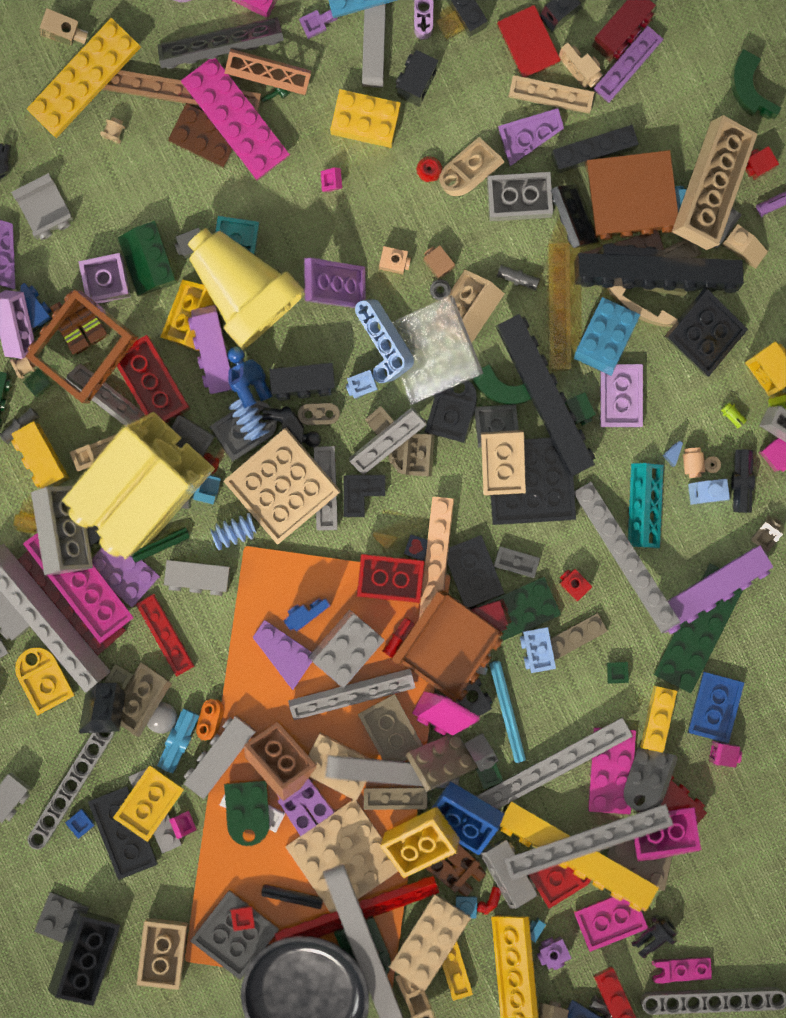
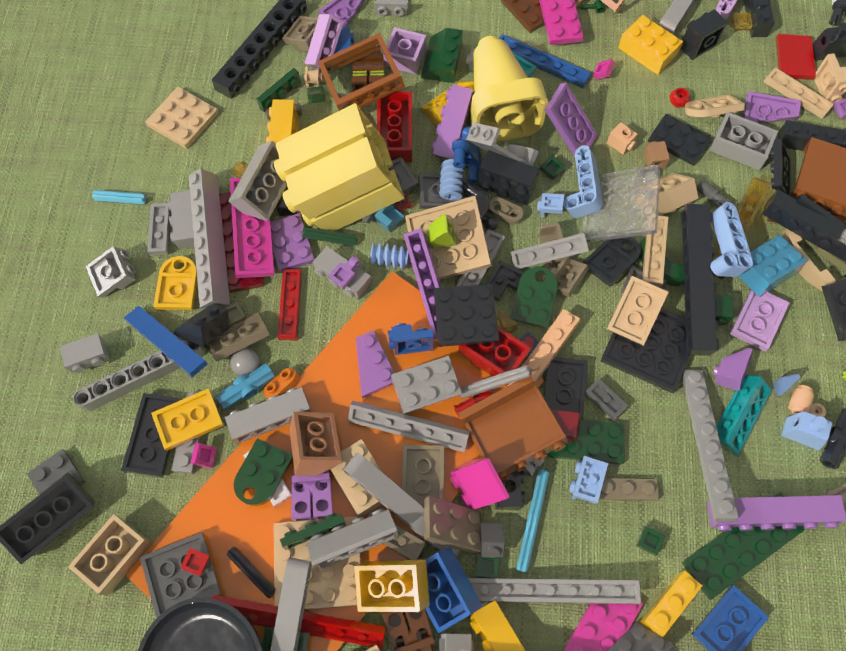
camera: 35 degrees right, 20 degrees down
(76, 744) = (165, 341): none -> blue tile
(80, 823) = (125, 407): blue plate -> none
(204, 584) = (344, 274): none -> medium lavender plate
(257, 201) = (548, 62): none -> blue tile
(275, 489) = (441, 233): none -> lime slope
(294, 548) = (425, 272): none -> medium lavender brick
(296, 353) = (486, 136): none -> light grey panel
(325, 836) = (311, 529): none -> dark green plate
(339, 336) = (552, 167): none -> dark green plate
(347, 565) = (465, 315): none -> black plate
(365, 824) = (352, 540): none -> light grey slope
(400, 498) = (534, 298): none -> dark green plate
(408, 612) = (495, 381): none -> light grey axle
(453, 224) = (680, 139): none -> black plate
(491, 390) = (655, 254): none -> tan plate
(553, 342) = (732, 242): none -> light blue beam
(574, 584) = (648, 443): red brick -> none
(619, 467) = (733, 369): none -> medium lavender slope

